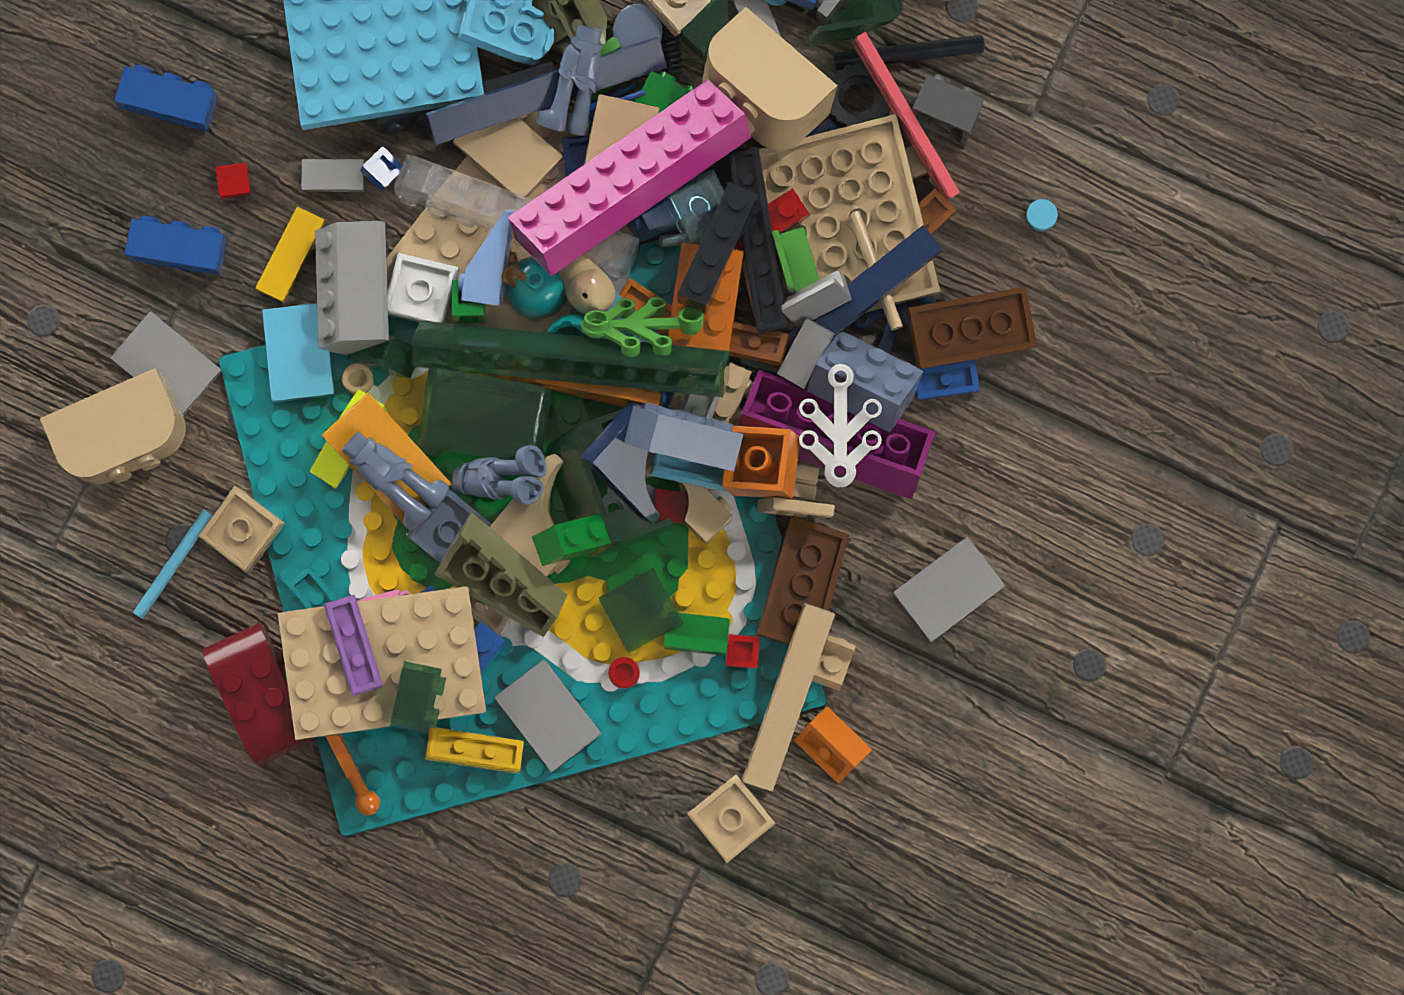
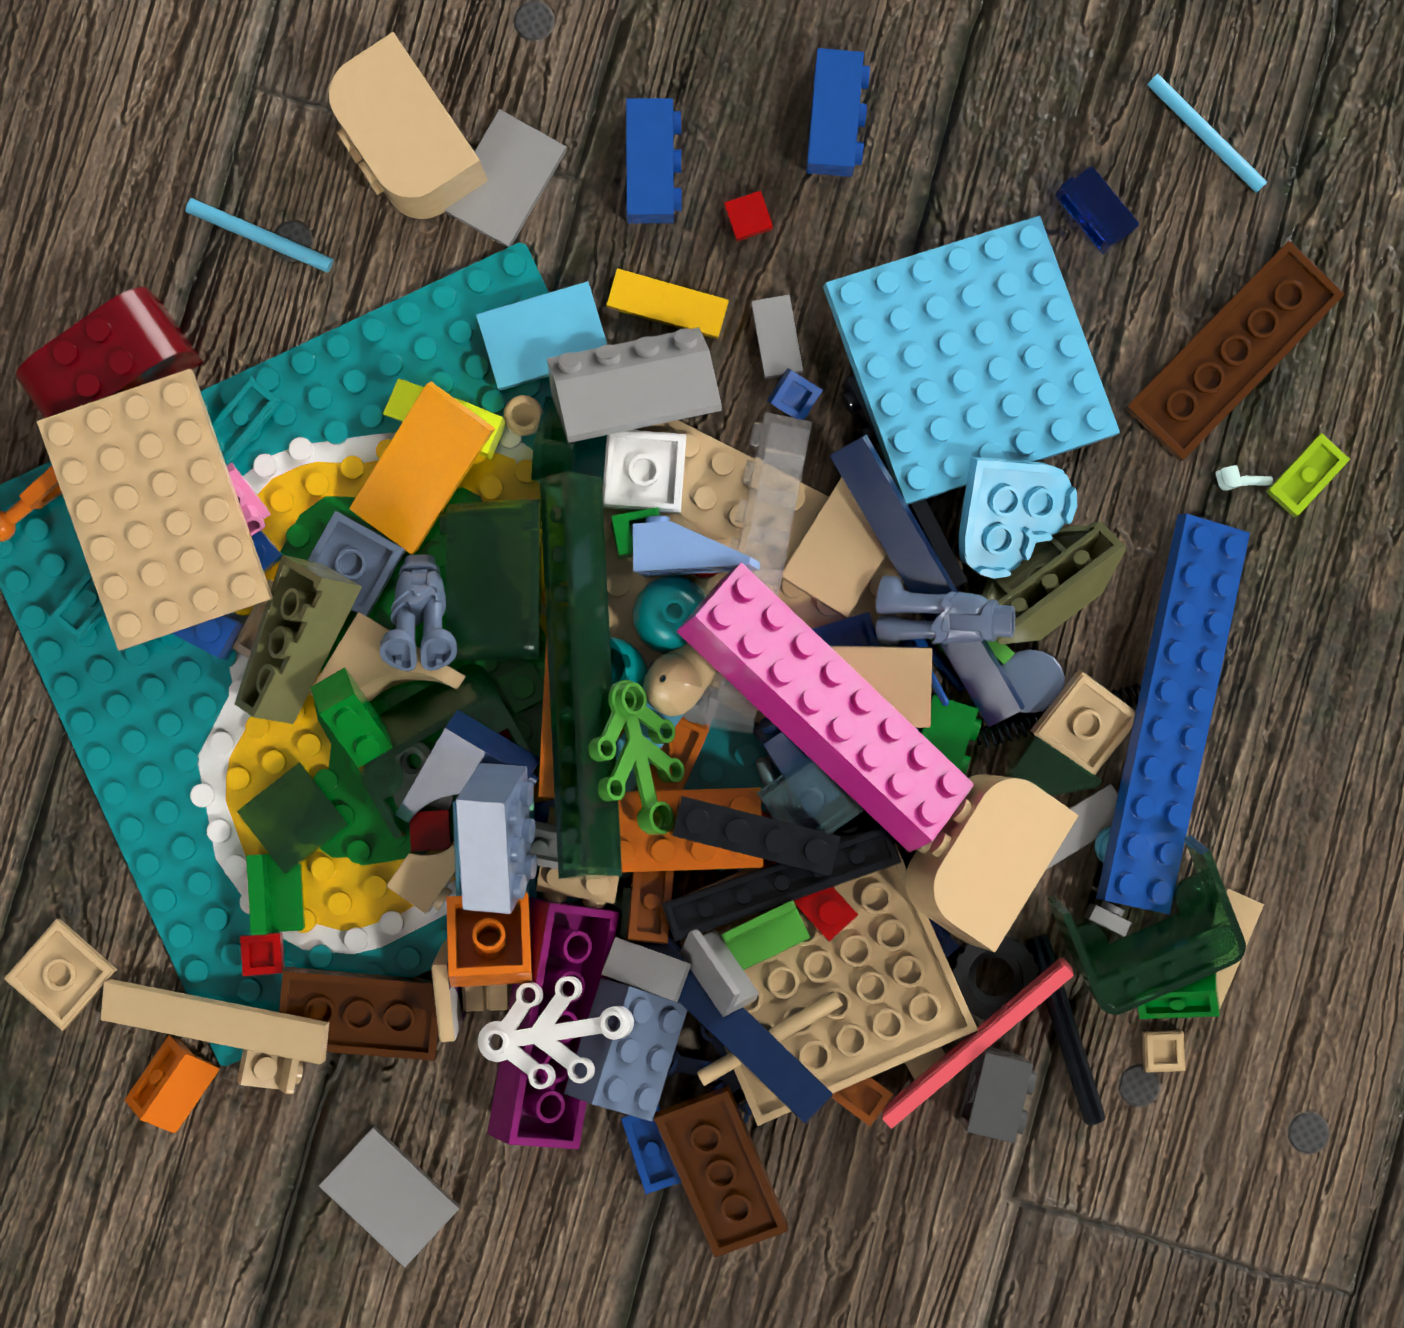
camera: 80 degrees right, 5 degrees up
(241, 529) = (313, 309): tan tile -> none
(353, 645) = (162, 470): medium lavender tile -> none
(382, 466) = (403, 468): sand blue piece -> none
(416, 697) = (109, 561): clear green brick -> none
(474, 750) = (83, 645): yellow tile -> none
(512, 272) = (677, 582): clear orange hand -> none
(548, 715) = (144, 726): light grey tile -> none
(624, 673) = (213, 811): red tile -> none
(1041, 215) = (886, 1233): medium azure tile -> none

